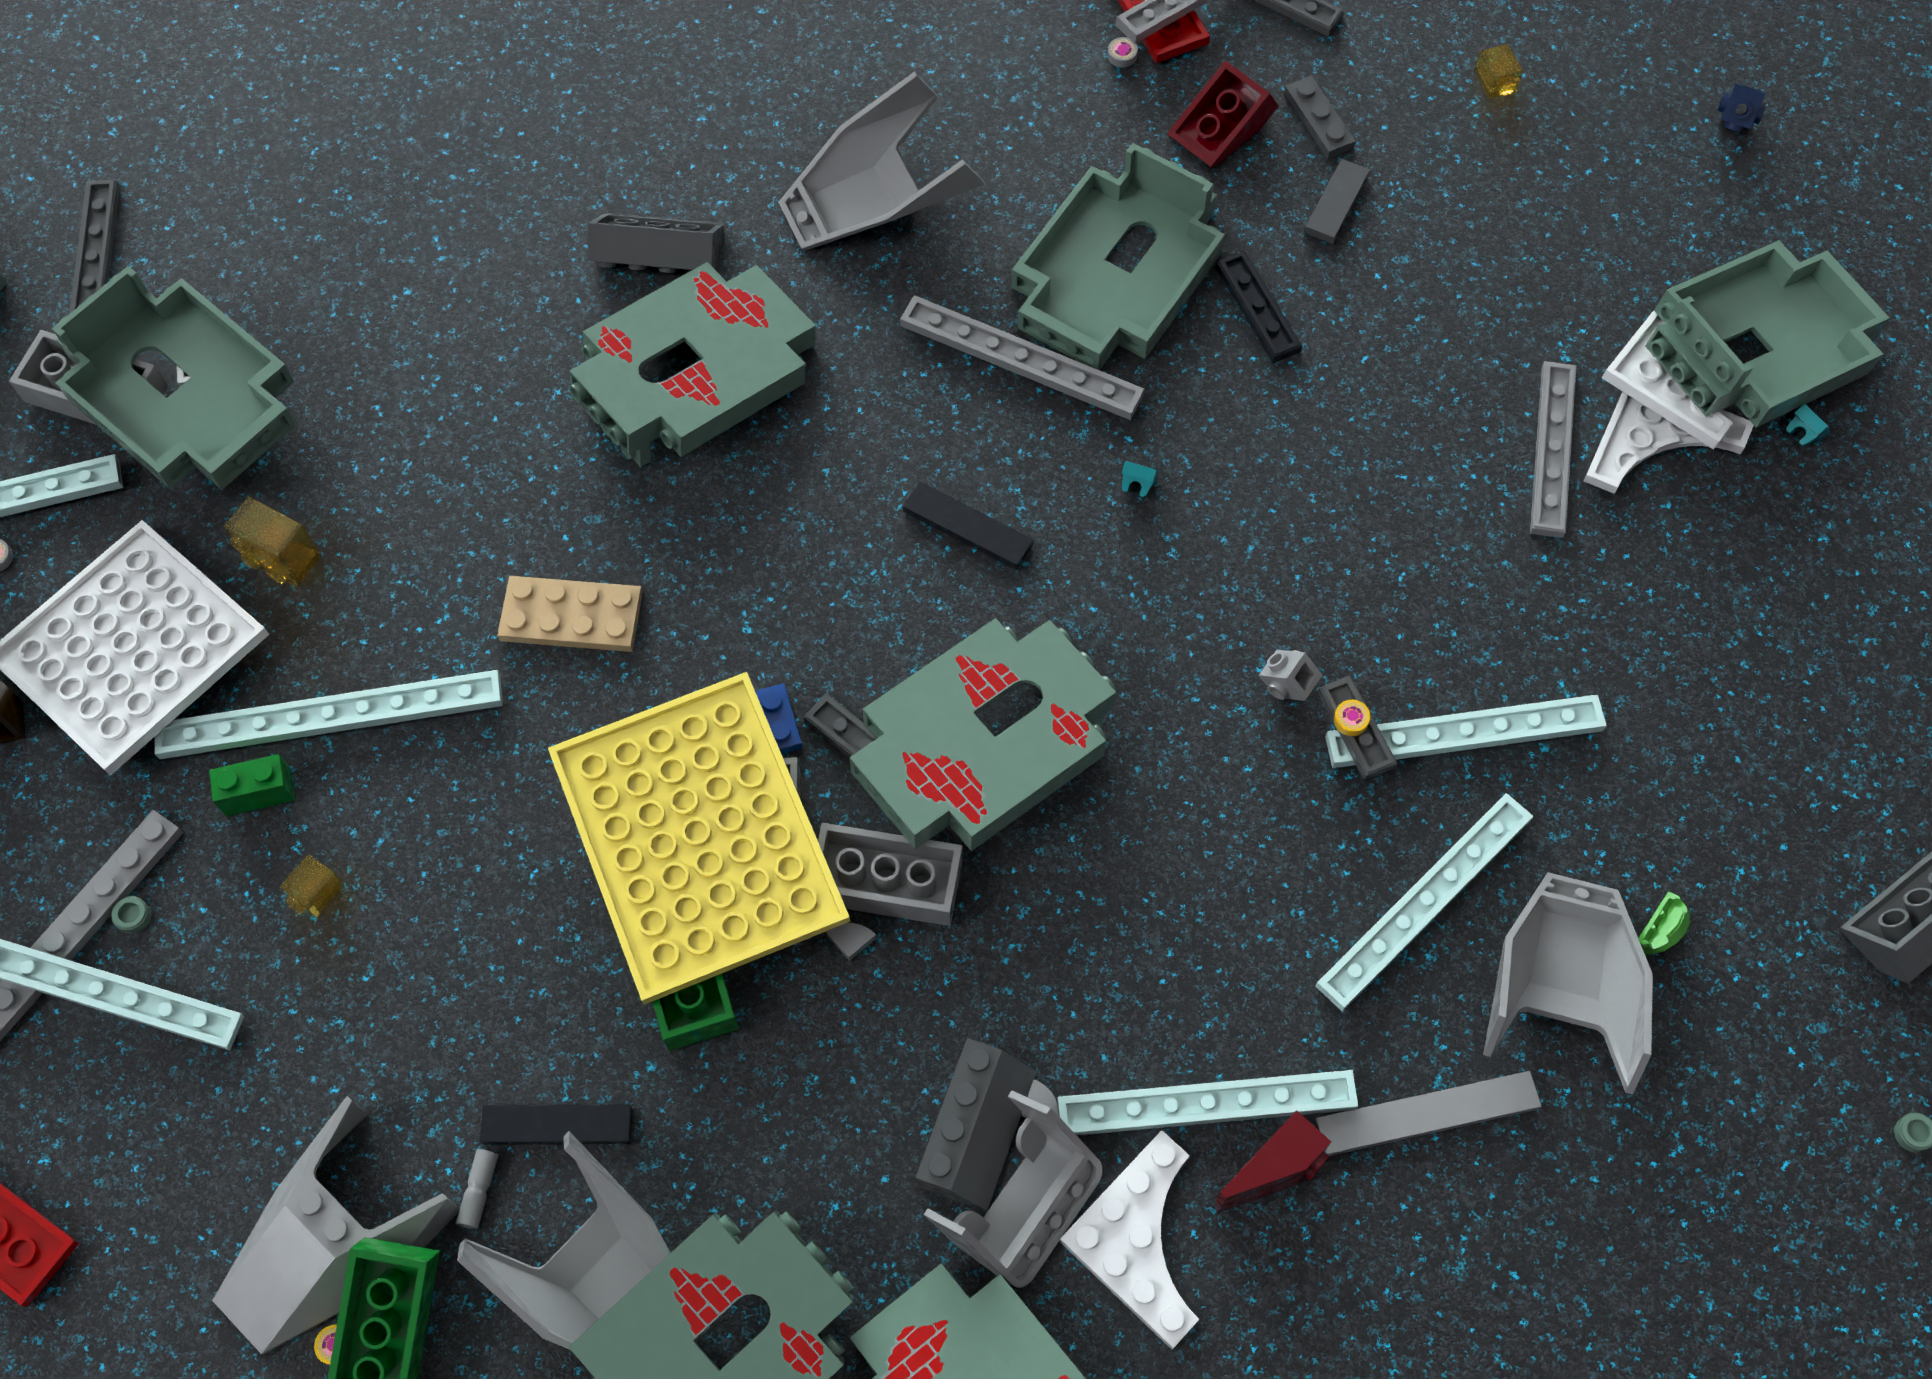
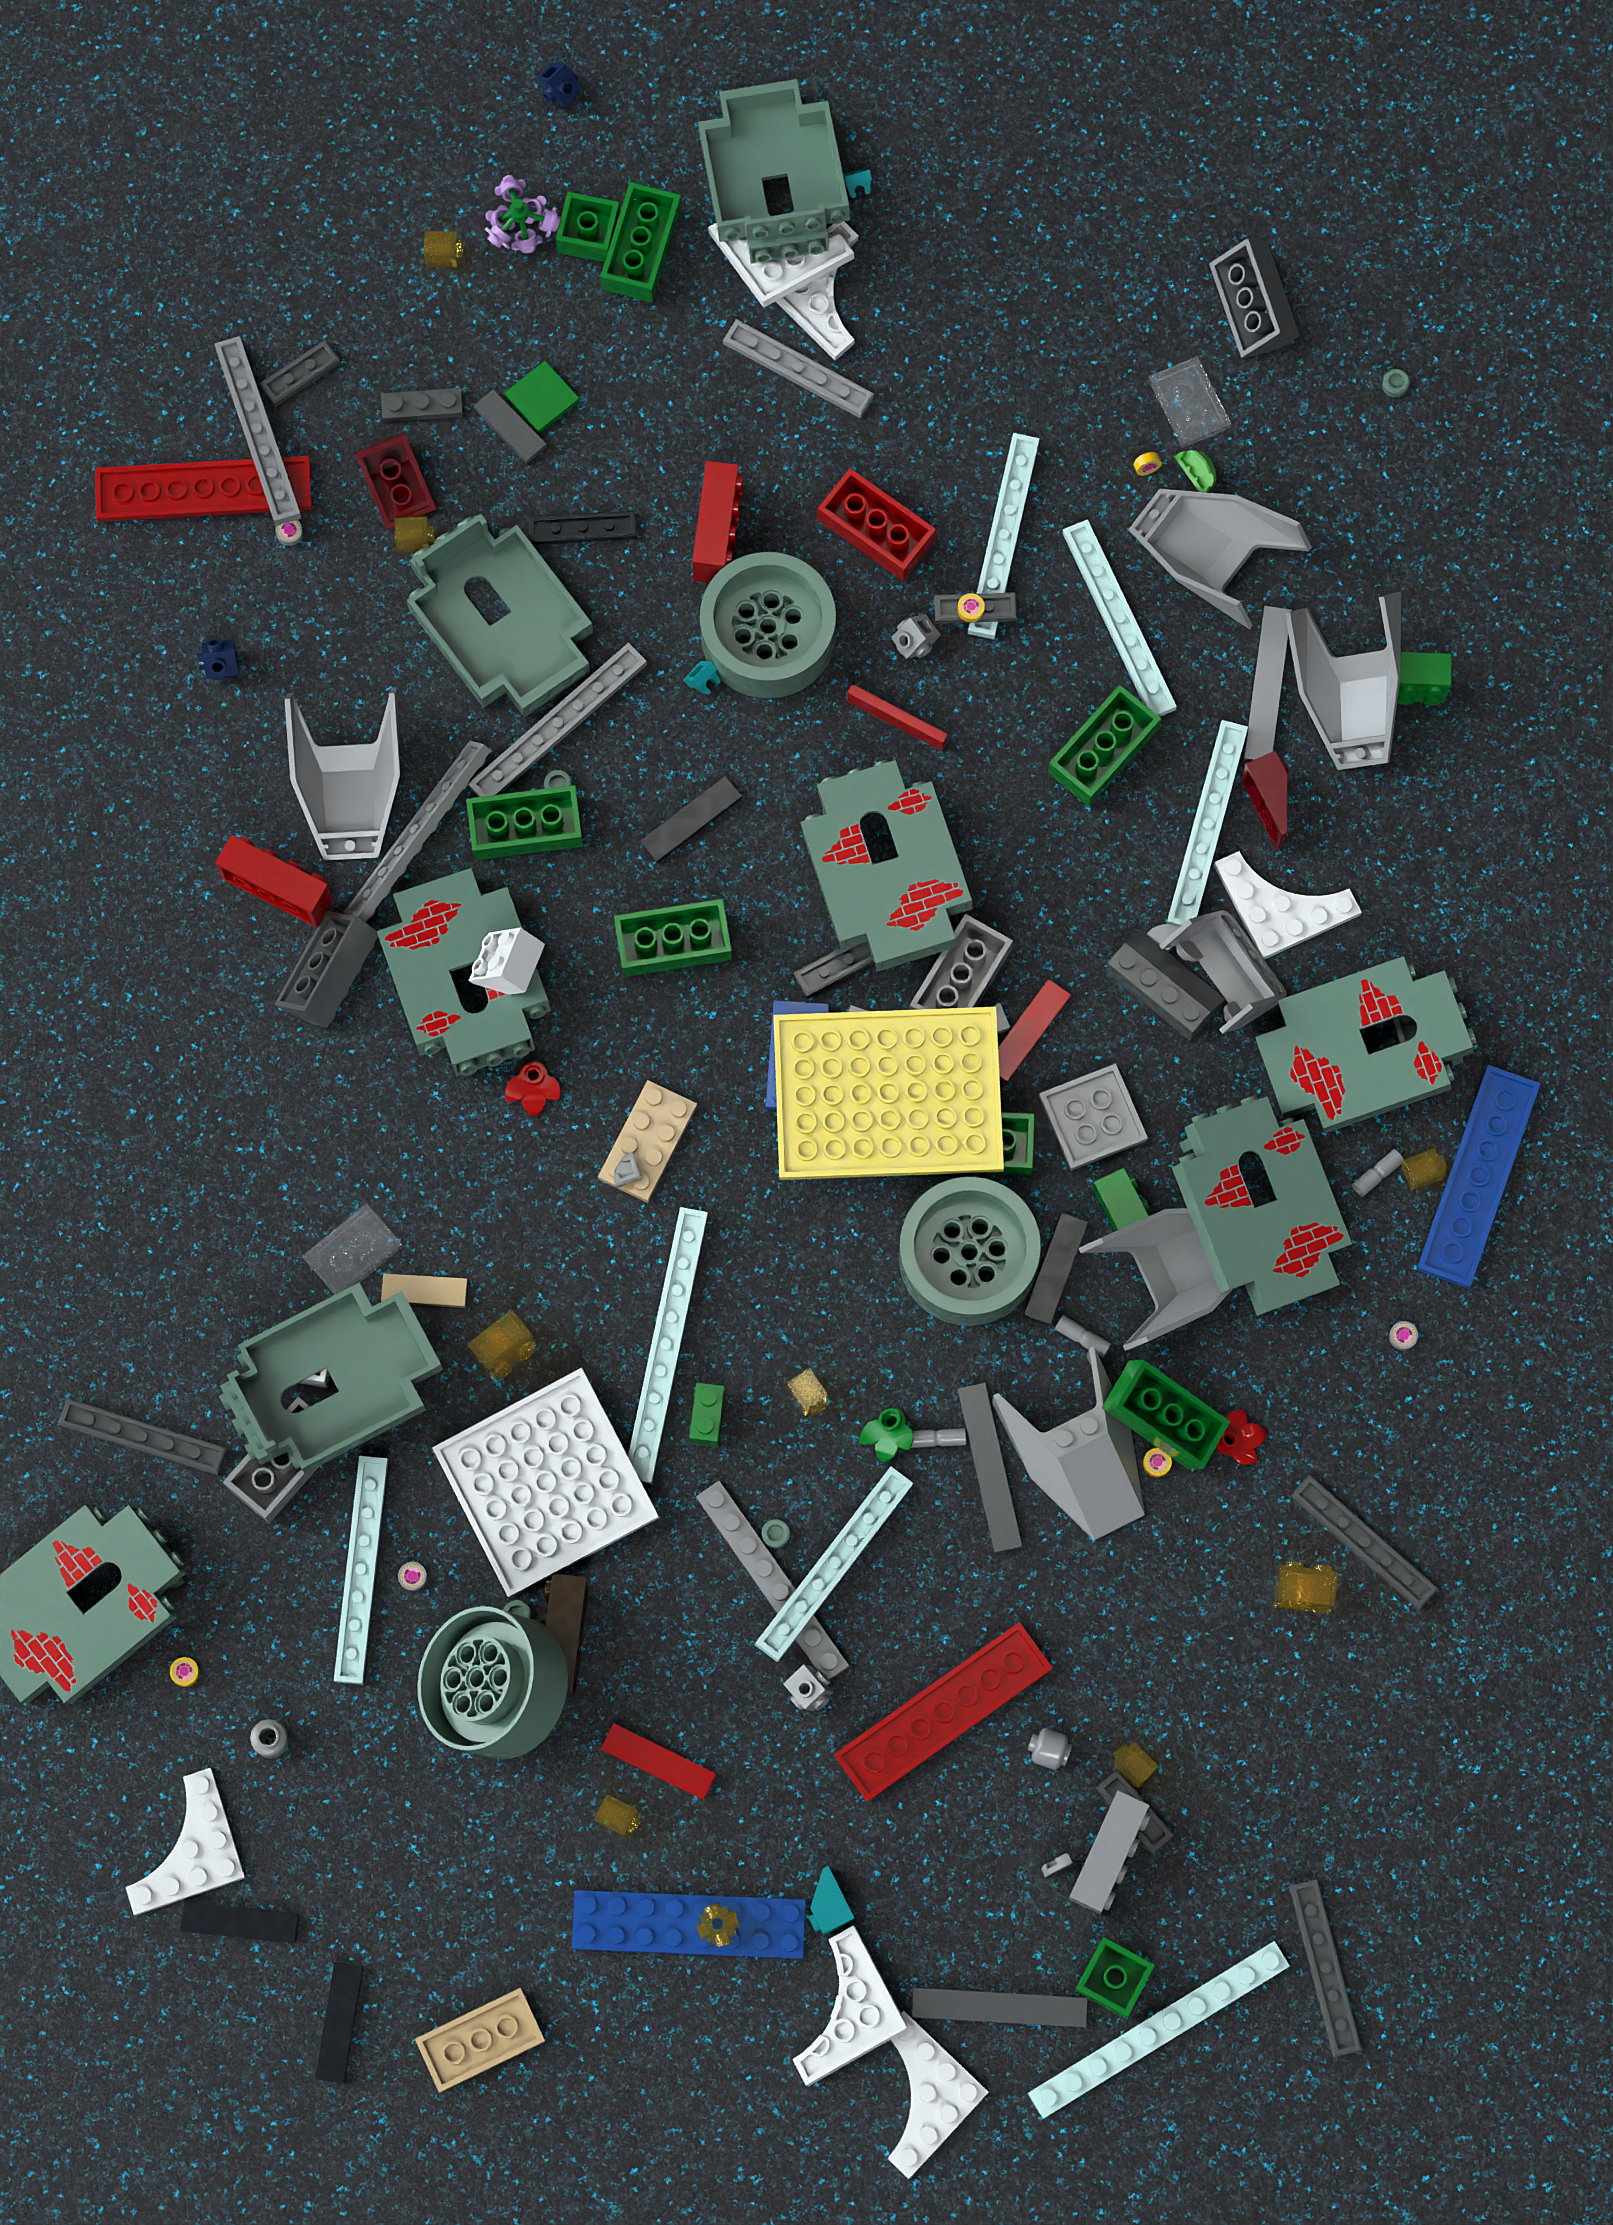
camera: 70 degrees left, 10 degrees up
(270, 1137) = (989, 1468): none -> dark grey tile
(286, 997) = (887, 1438): none -> green plate
(295, 1054) = (942, 1437): none -> light grey piece
(326, 455) = (426, 1290): none -> tan tile
(351, 374) = (352, 1250): none -> clear tile
(486, 974) = (962, 1205): none -> sand green wheel
(520, 598) = (626, 1171): none -> light grey tile
(590, 479) = (532, 1092): none -> red plate
(666, 1172) = (1120, 1199): none -> green brick
(707, 380) = (507, 961): none -> white slope
(729, 156) = (274, 880): none -> red brick
(768, 1098) = (1093, 1117): none -> light grey plate
(814, 549) = (673, 937): none -> green brick
(830, 268) = (418, 830): none -> light grey plate
(853, 981) = (1030, 1028): none -> red tile
(890, 360) = (524, 822): none -> green brick
(953, 35) = (219, 659): none -> dark blue brick
(953, 383) = (557, 779): none -> sand green tile
(1171, 146) = (412, 534): none -> clear yellow brick
(1183, 693) = (897, 717): none -> red tile
(1208, 467) = (748, 586): none -> sand green wheel
(1252, 937) = (1104, 745): none -> green brick
(1323, 420) = (717, 520): none -> red brick
(1385, 218) = (541, 397): none -> green tile
(1406, 586) = (876, 524): none -> red brick
(1461, 1219) = (1349, 695): none -> light grey windscreen
(1527, 1307) = (1424, 678): none -> green brick
(1572, 110) = (519, 212): none -> lavender plant
(1598, 186) = (587, 226): none -> green brick
(1610, 240) = (641, 242): none -> green brick
(1641, 861) = (1147, 463): none -> yellow tile
(1748, 885) = (1189, 401): none -> clear tile

